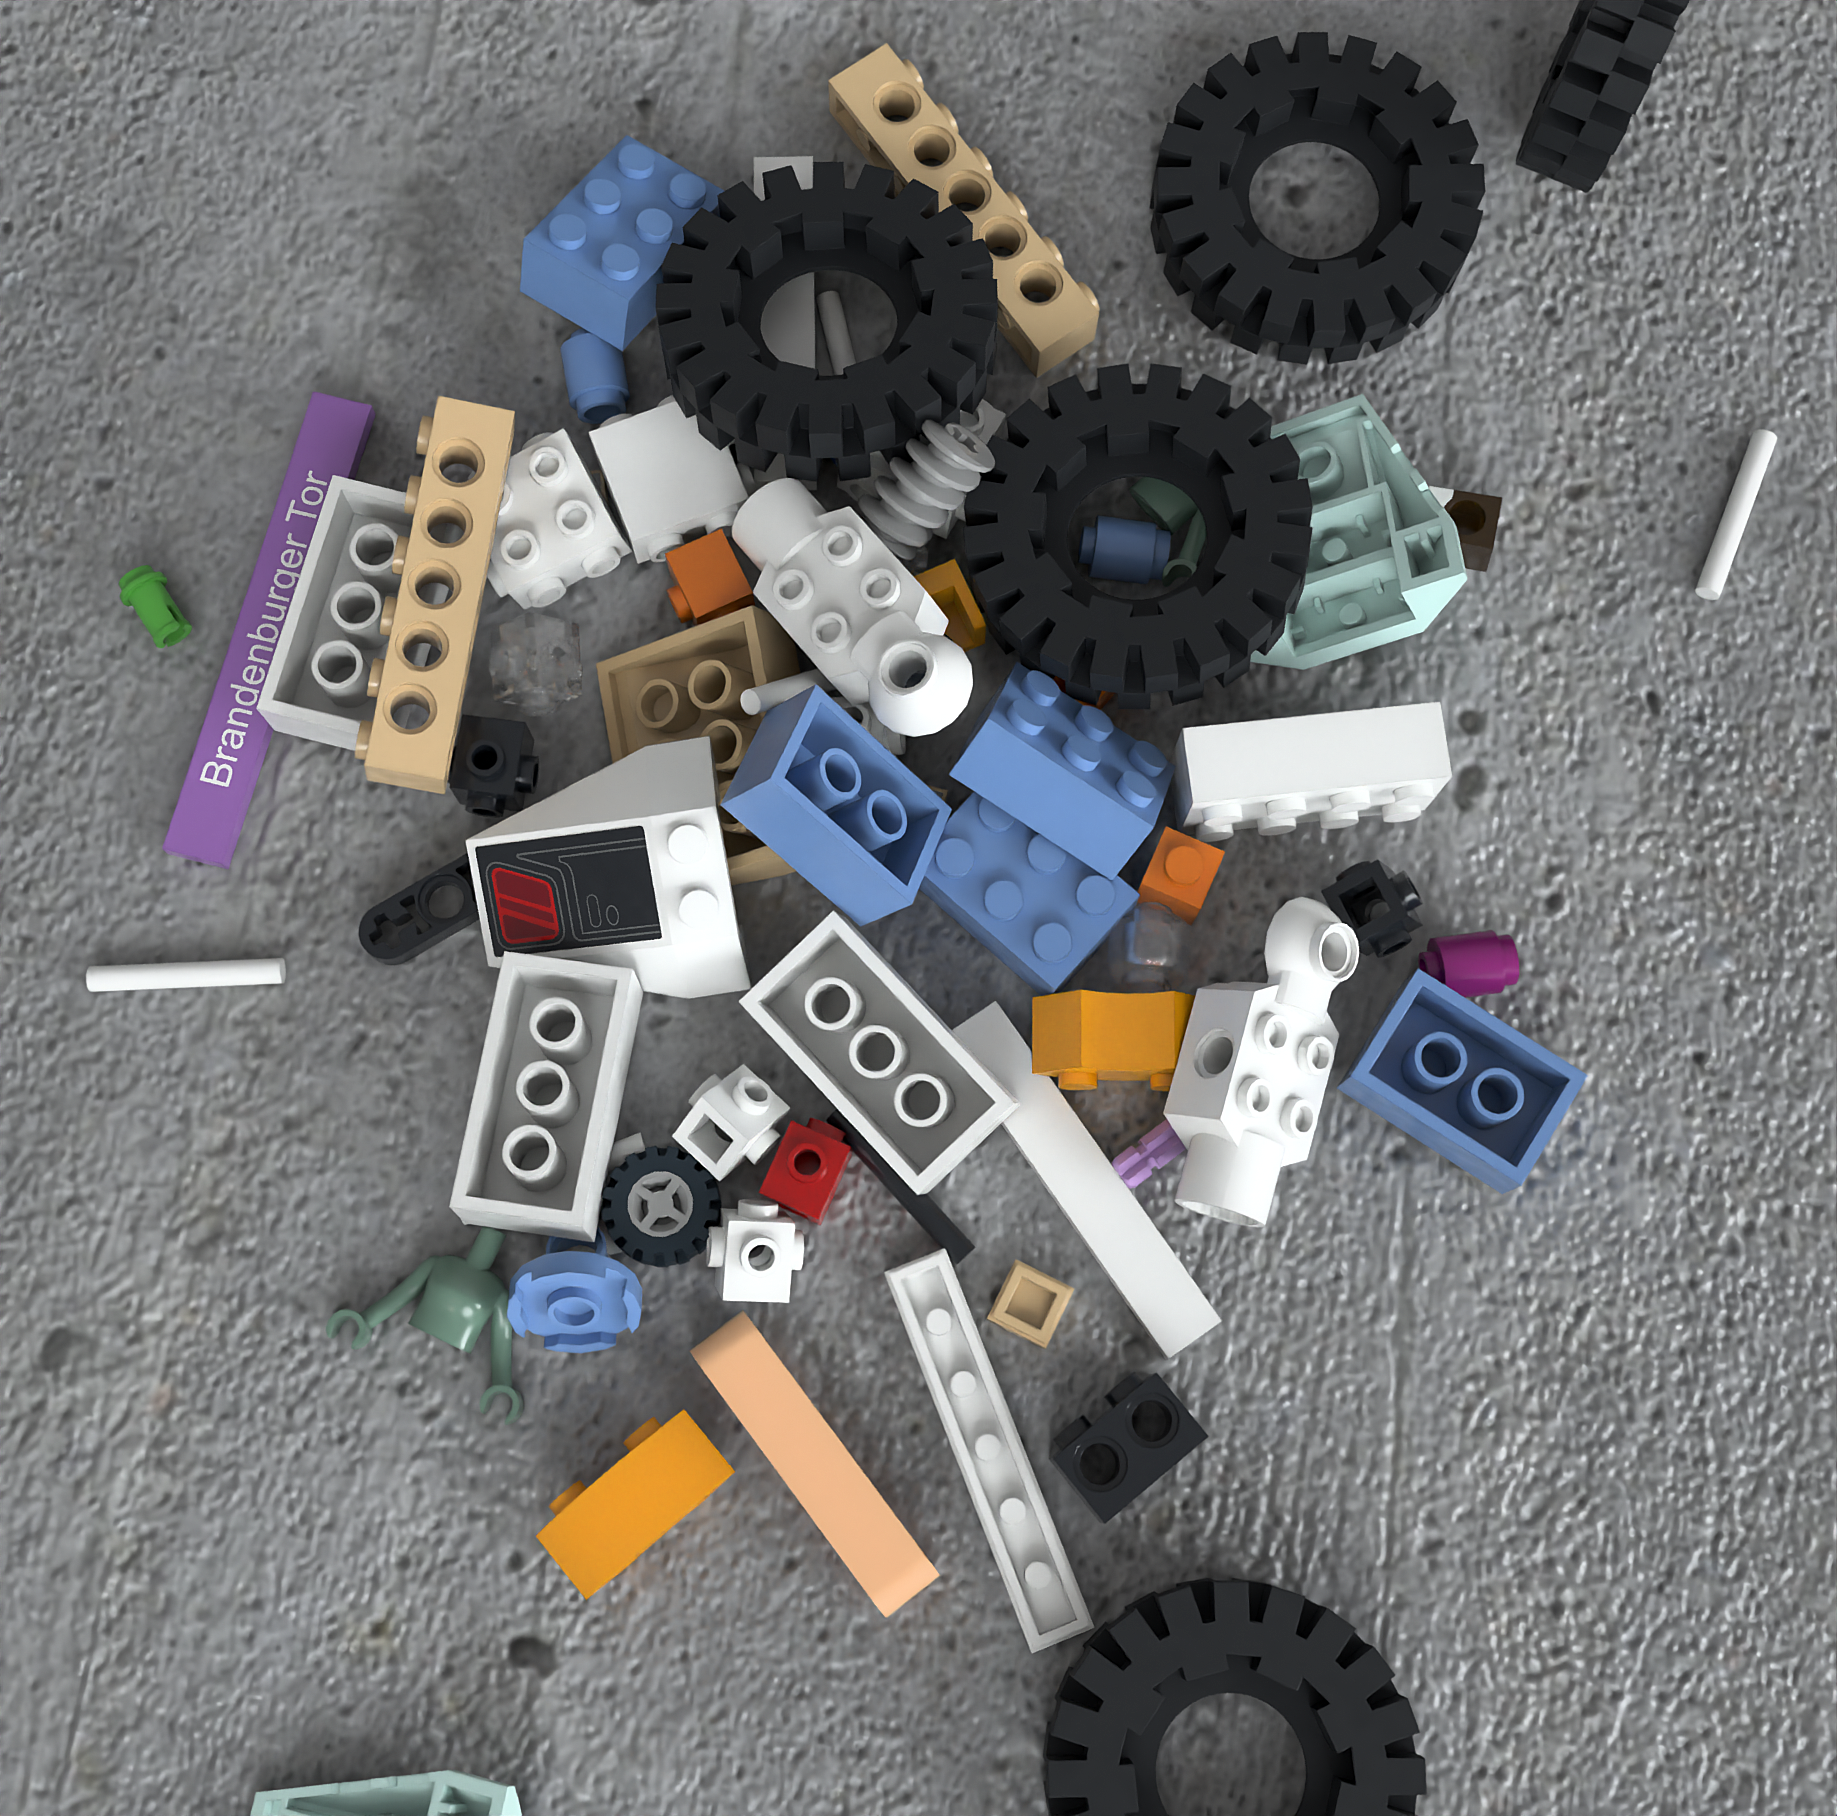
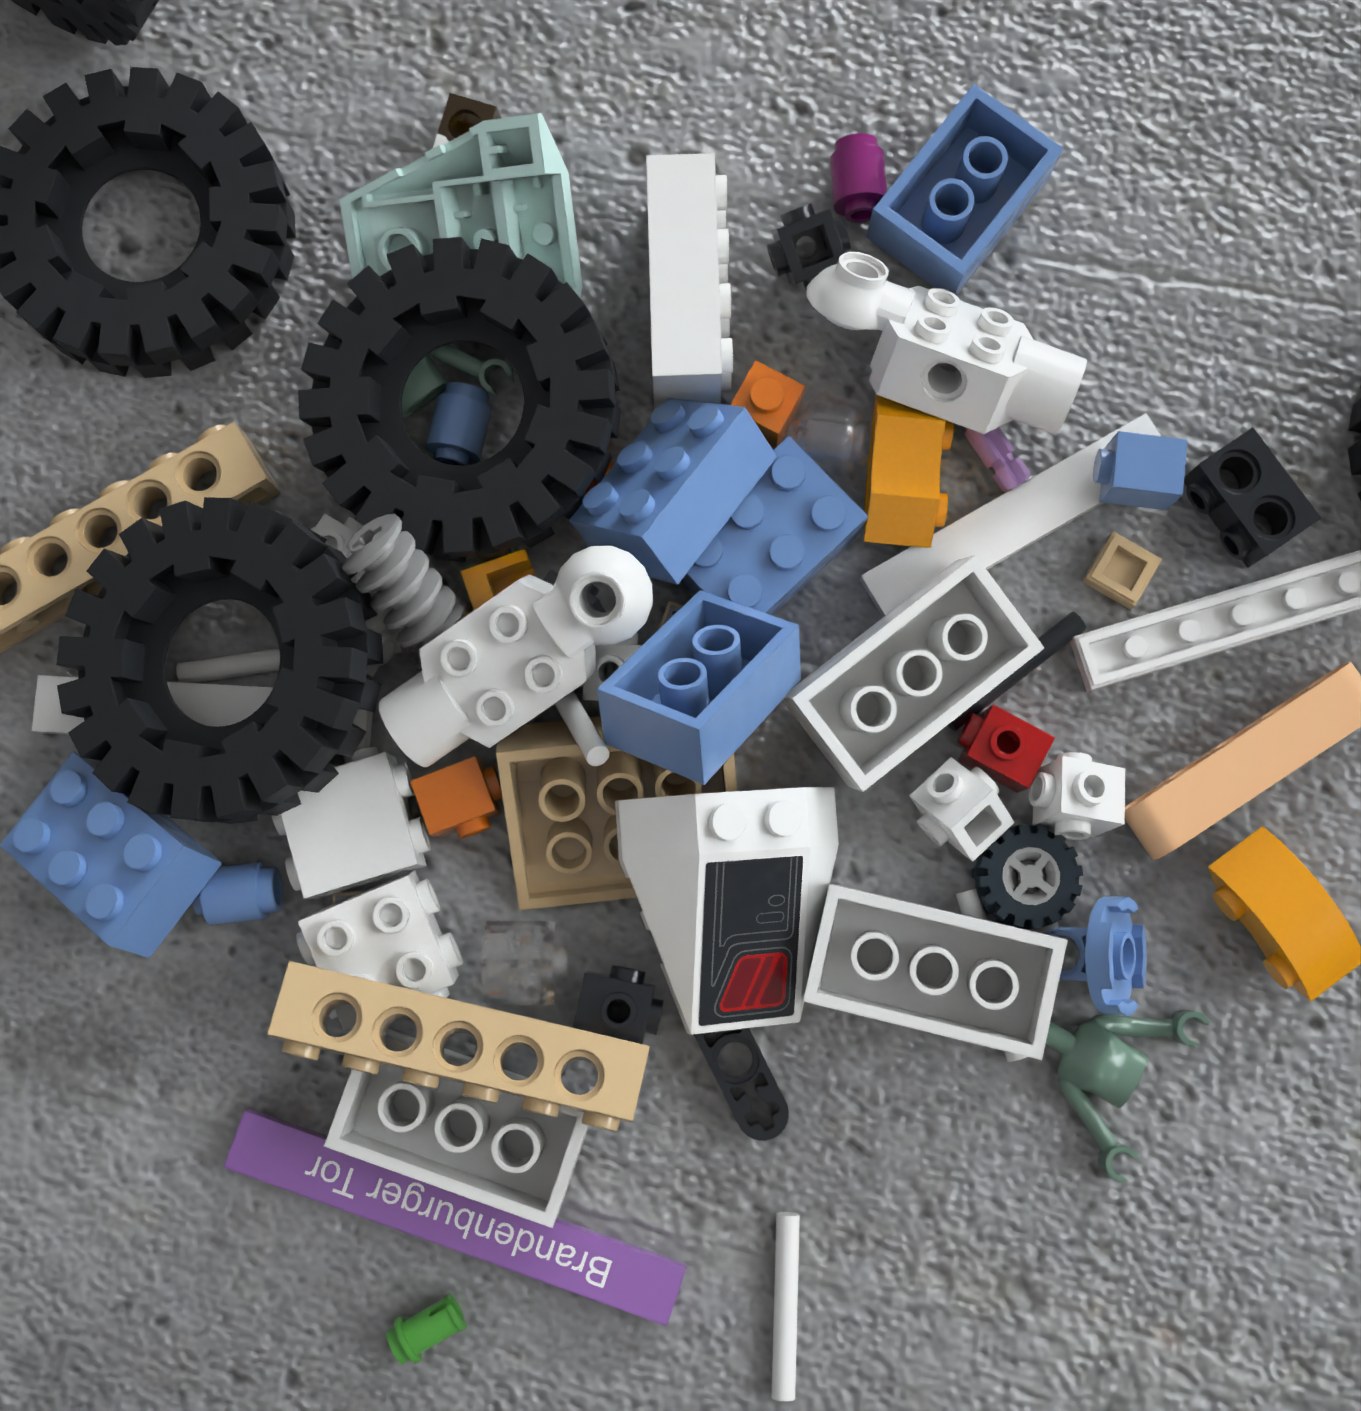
camera: 80 degrees left, 5 degrees up
(1140, 1300) = (1141, 470): none -> medium blue brick

